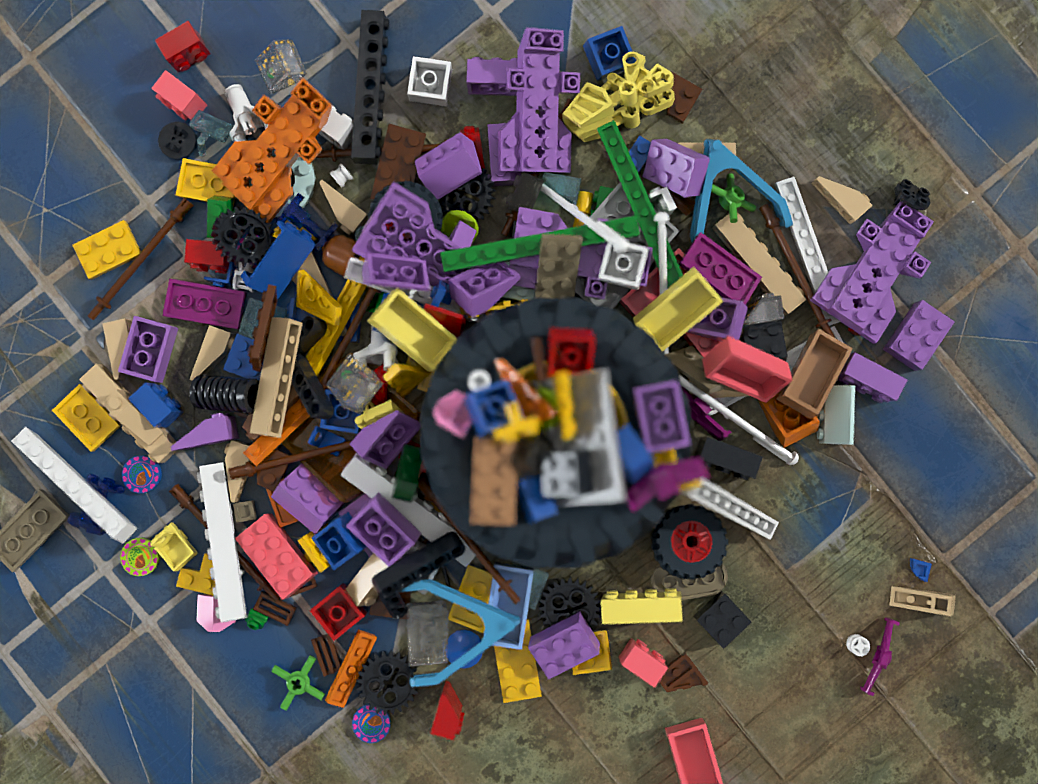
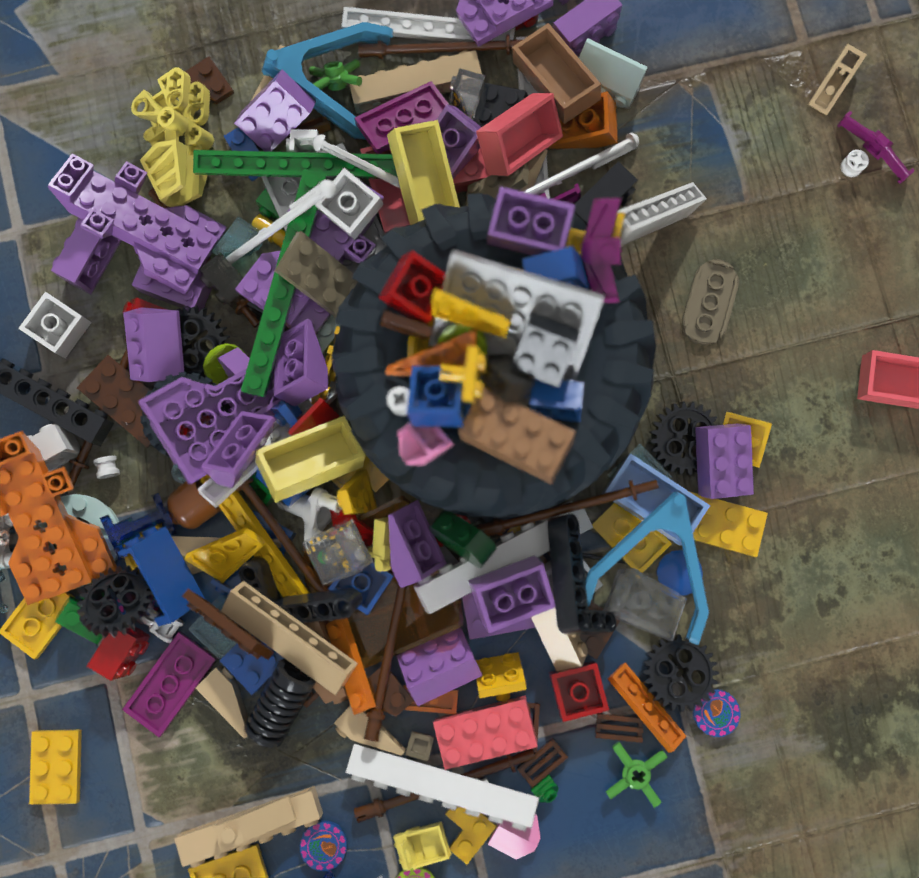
camera: 65 degrees left, 5 degrees down
(116, 335) = (166, 800): tan slope -> none
(148, 349) = (187, 770): medium lavender brick -> none
(156, 404) = (253, 790): blue brick -> none
(175, 217) = (58, 670): reddish brown bar -> none
(210, 431) = (313, 741): medium lavender slope -> none
(220, 282) = (156, 652): blue bracket -> none
(325, 439) = (382, 617): blue bracket -> none
(338, 542) = (502, 651): blue brick -> none
(345, 211) = (149, 479): tan slope -> none
(448, 715) = (745, 621): red slope -> none
(607, 51) = (120, 130): blue brick -> none
(641, 607) = (720, 359): light yellow piece -> none
(642, 662) = (778, 385): coral brick -> none
(682, 675) = (807, 355): reddish brown wing -> none
(707, 542) = (675, 279): black wheel -> none
(722, 619) = (768, 285): black brick -> none
(920, 569) = (803, 68): blue tile -> none

